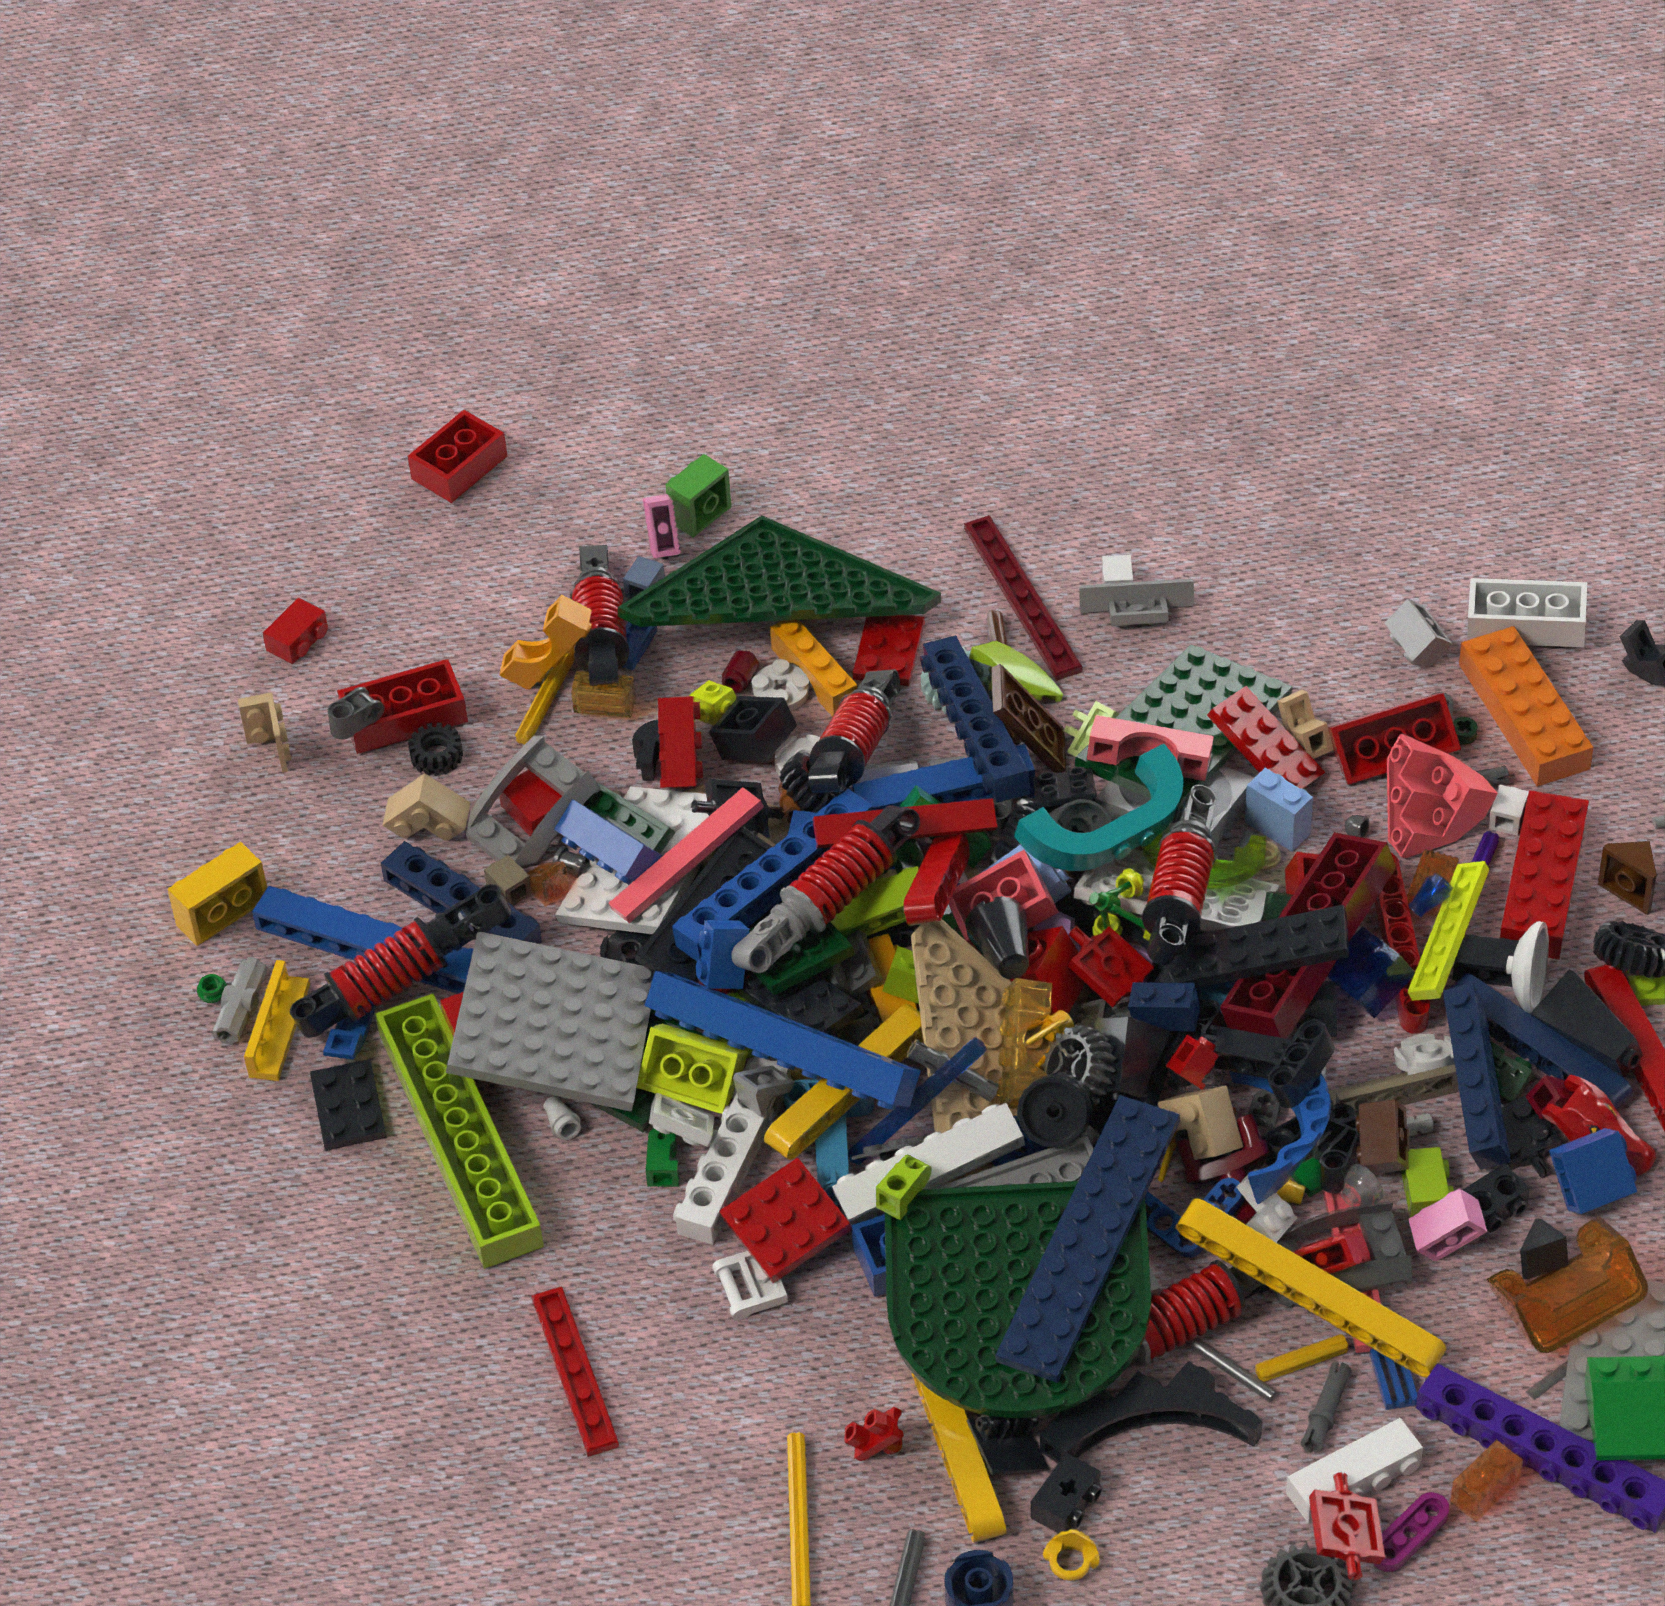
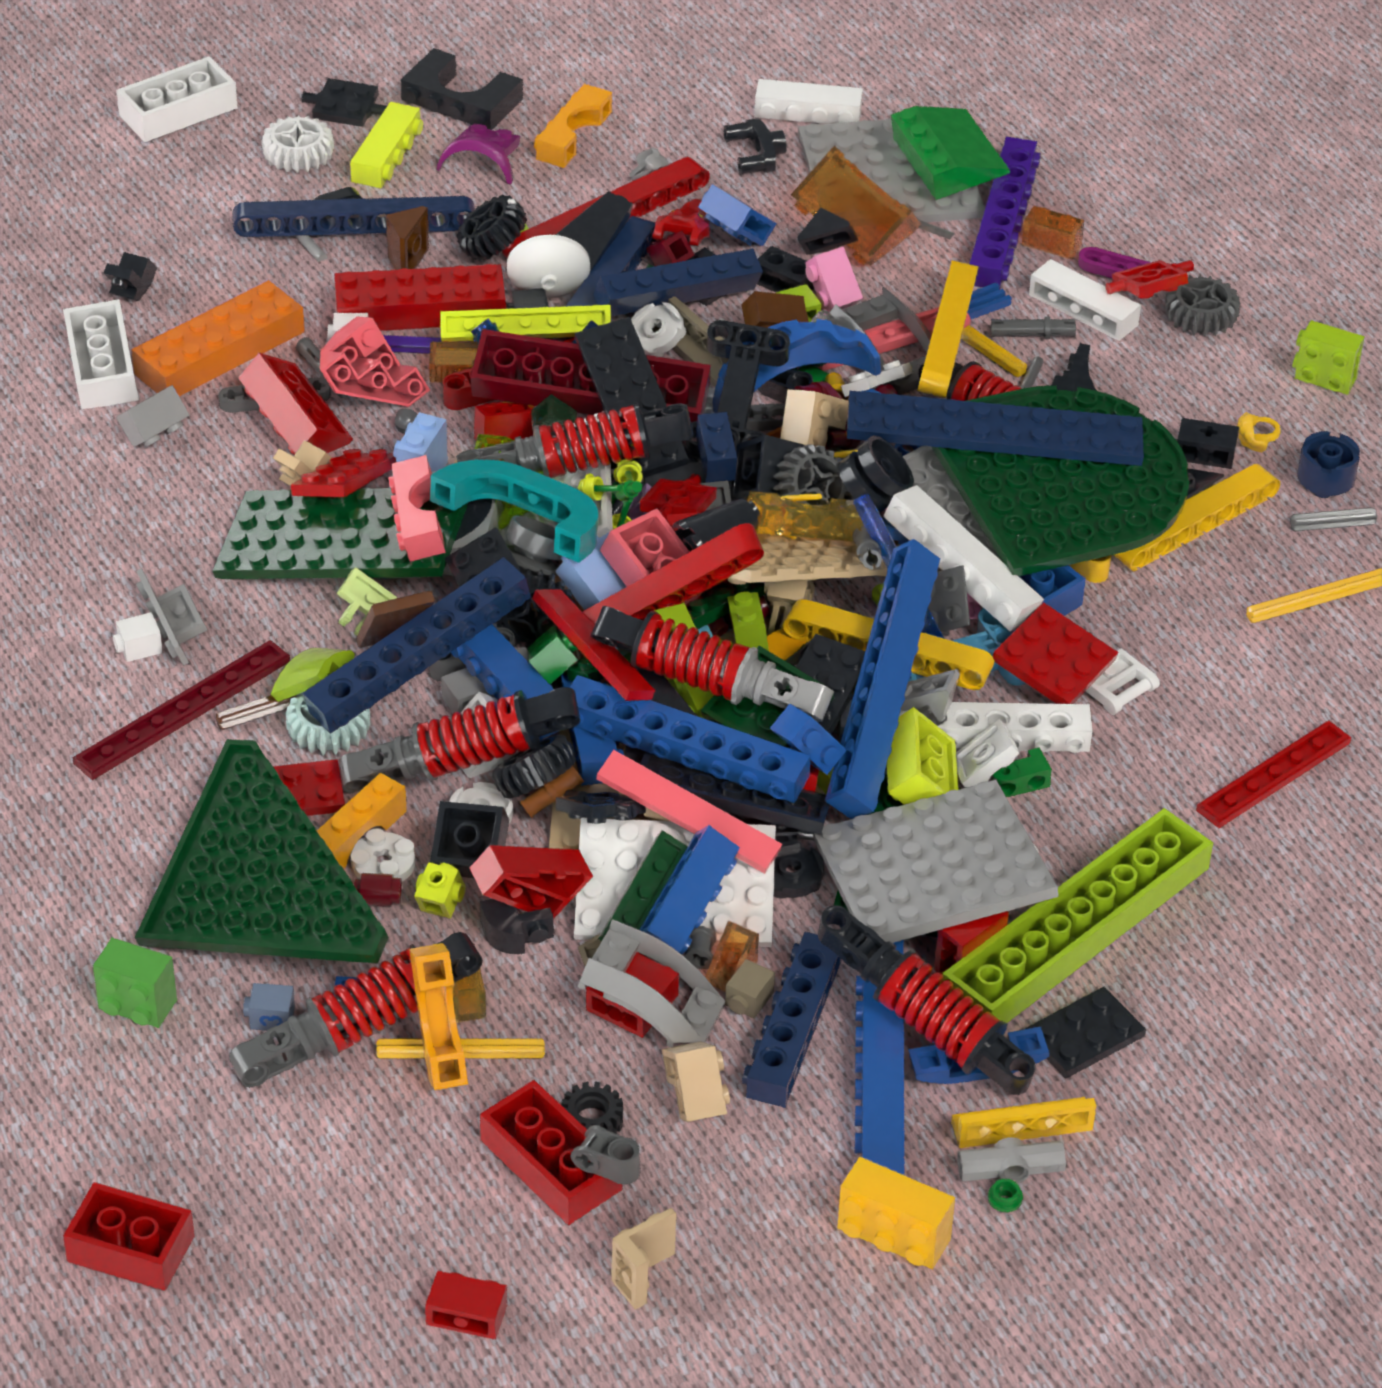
camera: 115 degrees left, 5 degrees down
(661, 526) = (197, 997): bright pink brick -> none
(877, 1434) = (1225, 554): red hips -> none
(902, 1185) = (1011, 544): lime leg -> none
(1194, 1060) = (776, 420): red brick -> none
(1336, 1251) = (905, 329): red brick -> none

